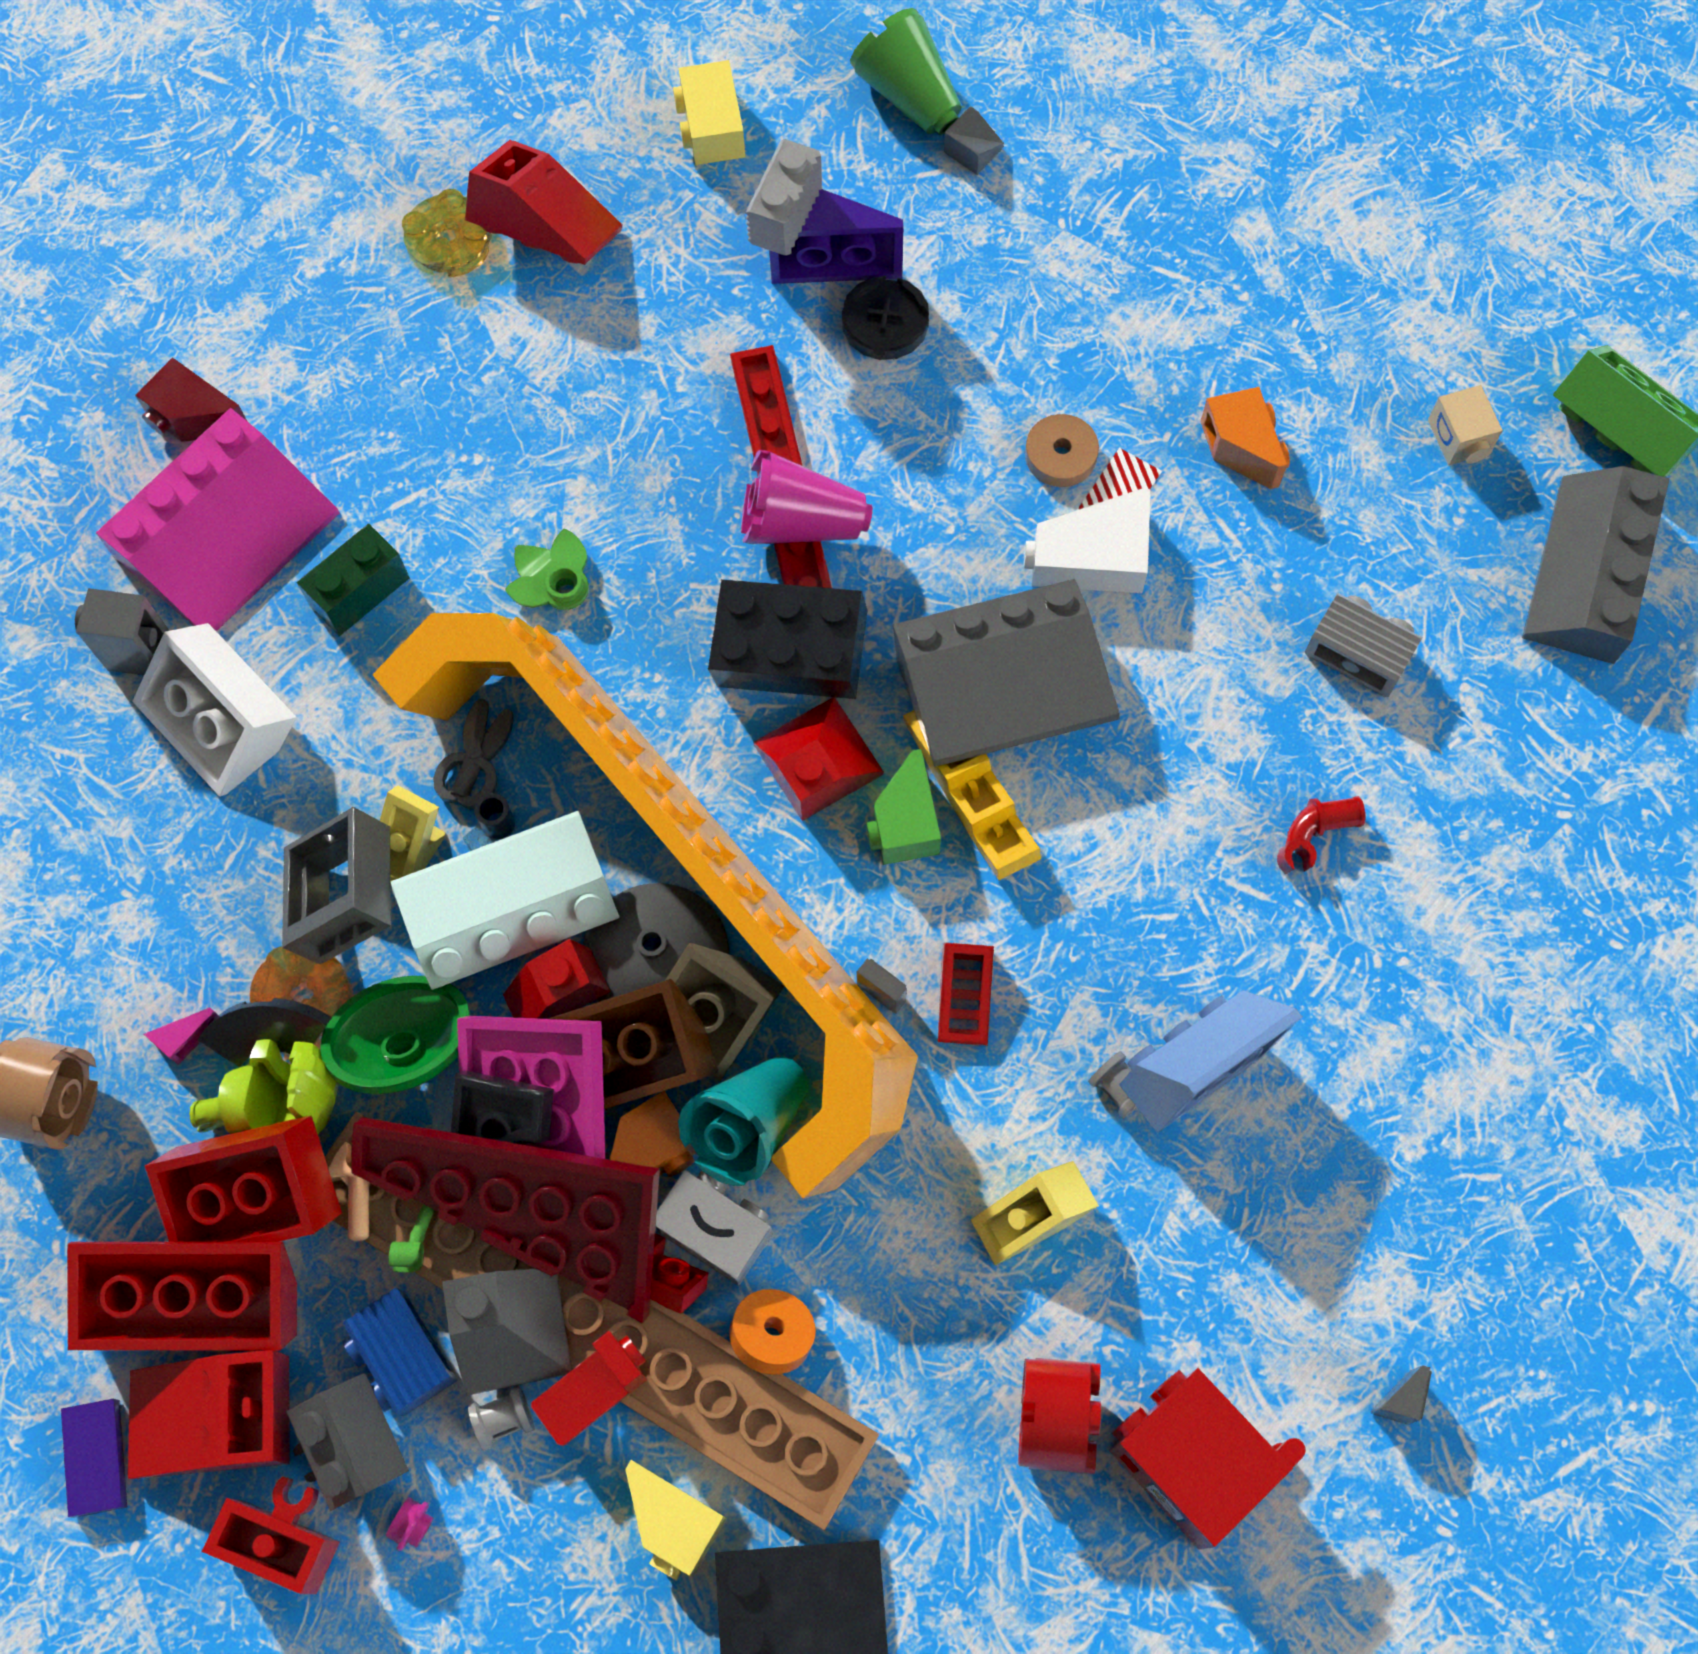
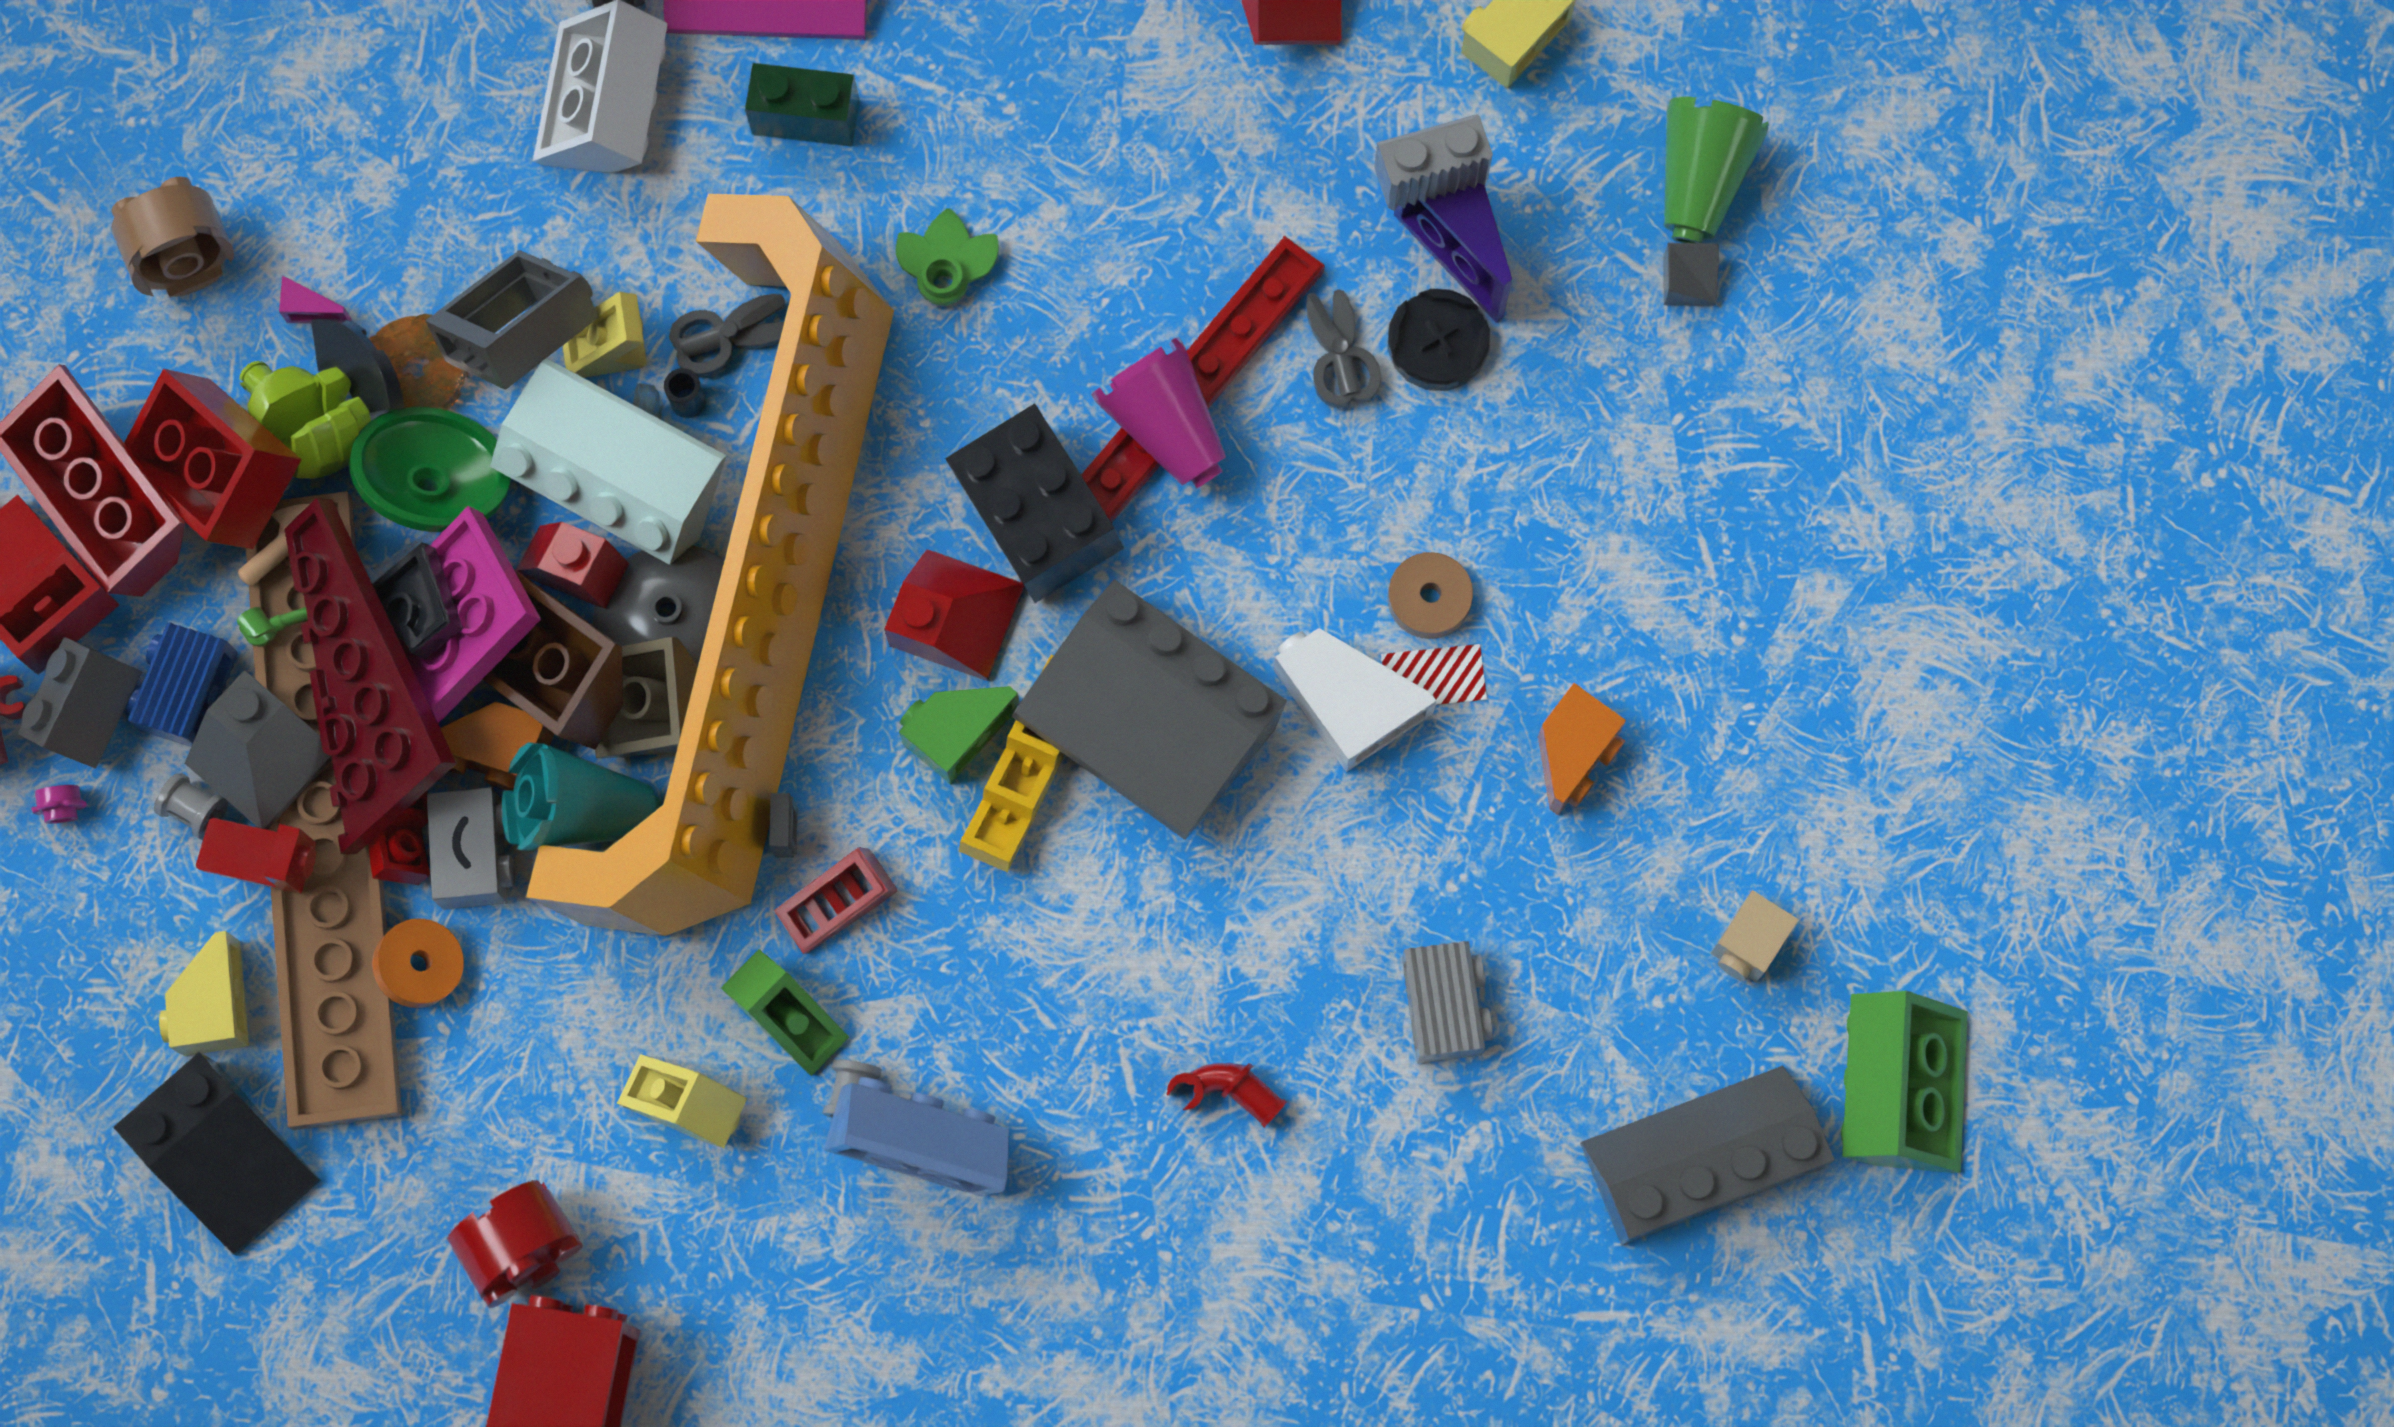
camera: 50 degrees right, 5 degrees up
(828, 374) = (1337, 339): none -> dark grey piece
(1023, 1087) = (785, 1012): none -> bright green slope

